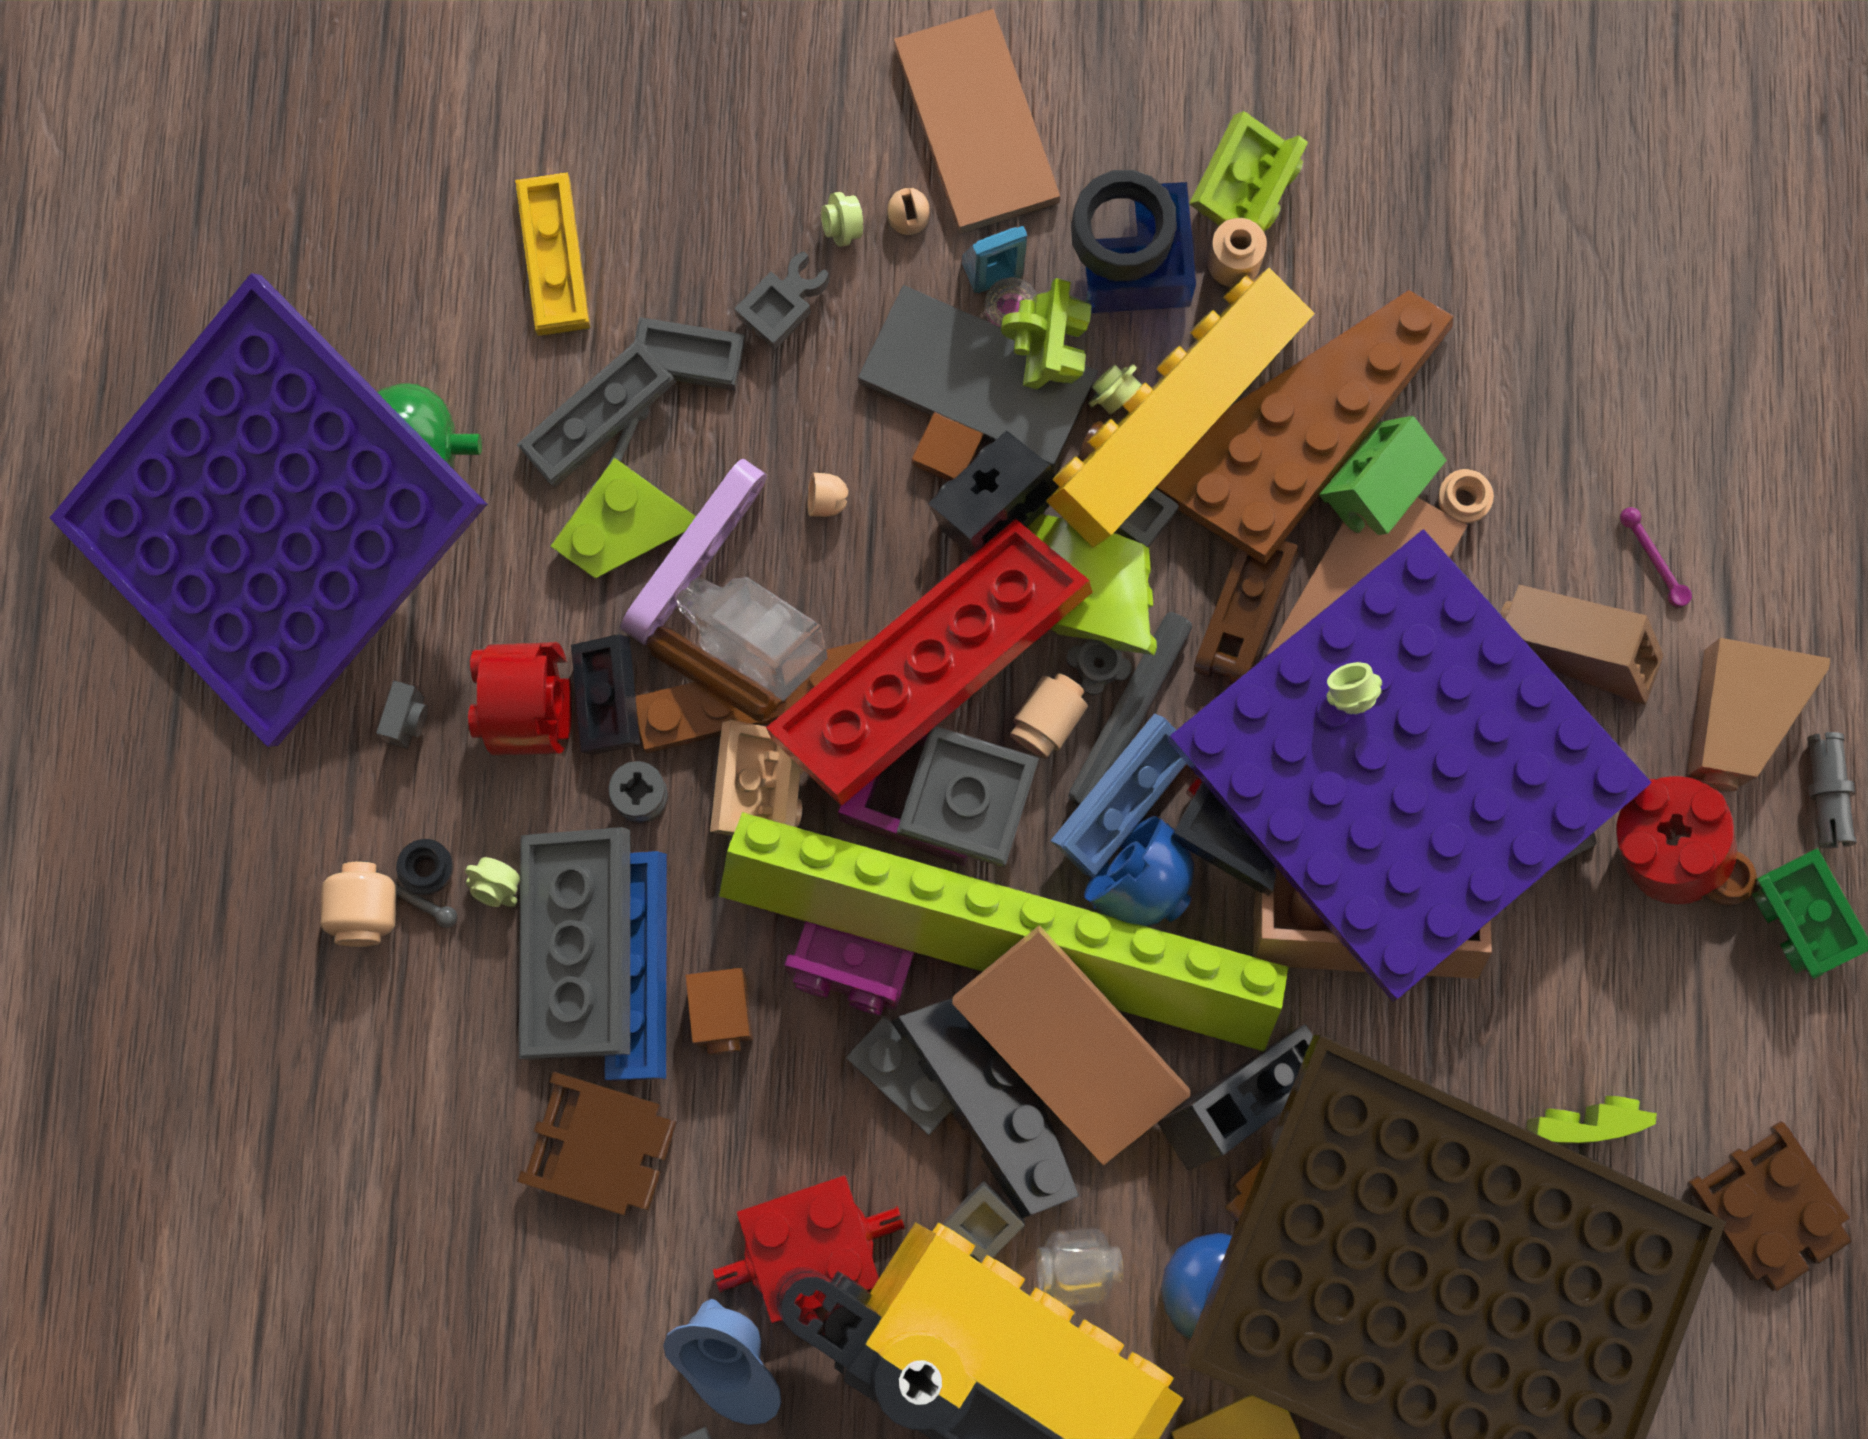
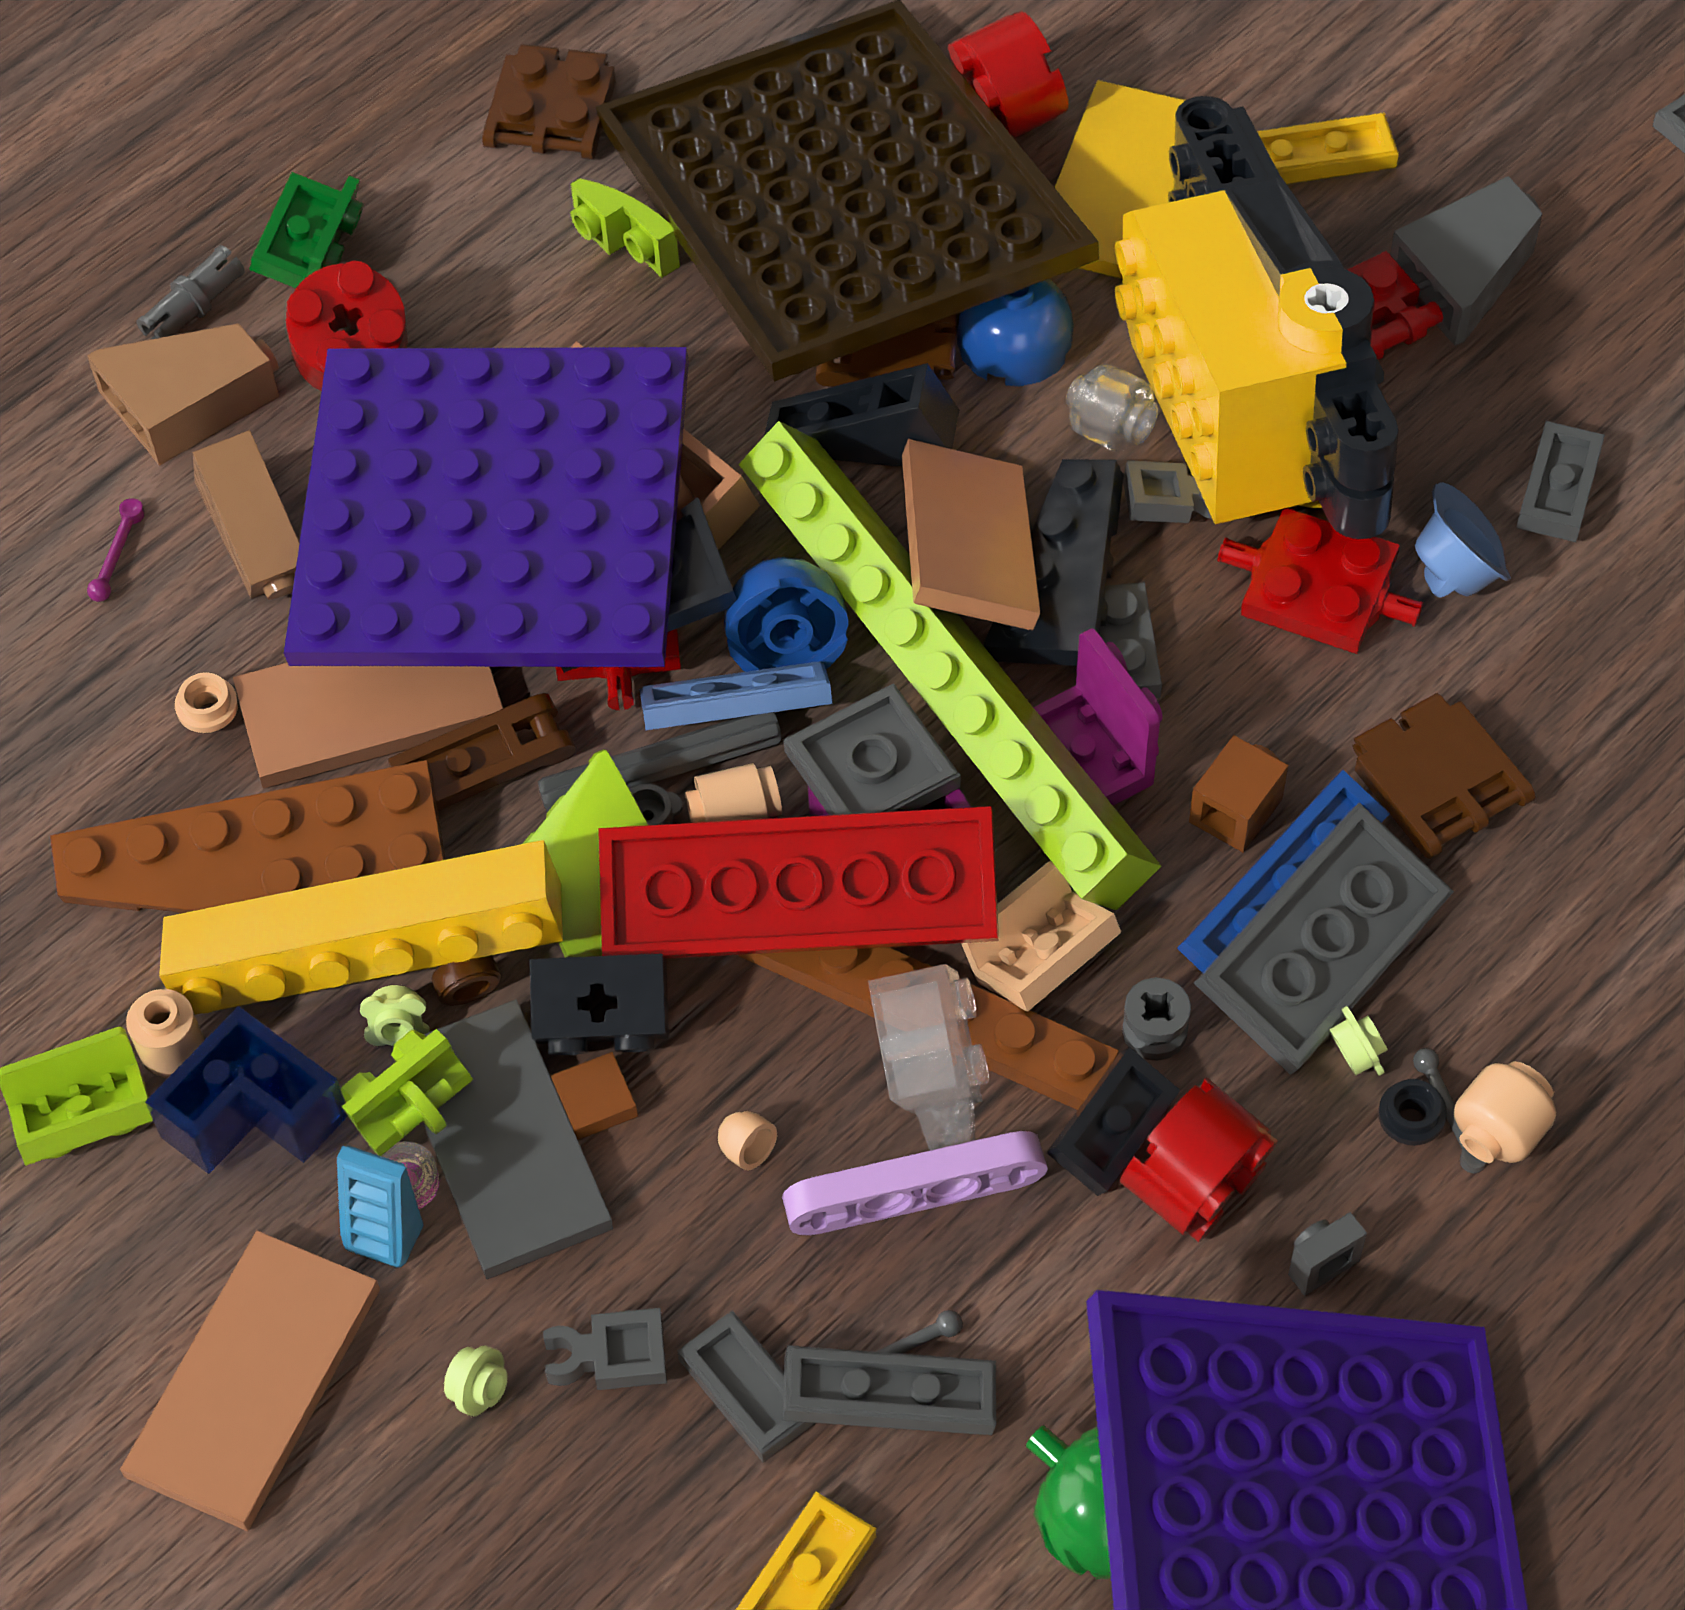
camera: 135 degrees left, 20 degrees down
(619, 522) = (961, 1269): lime wing -> none
(712, 673) = (999, 1042): reddish brown axle -> none
(897, 214) = (415, 1351): light nougat hinge -> none
(1123, 185) = (227, 1050): black tyre -> none
(1353, 688) = (468, 559): yellowish green plate -> none
(1384, 475) = (257, 752): bright green hinge -> none

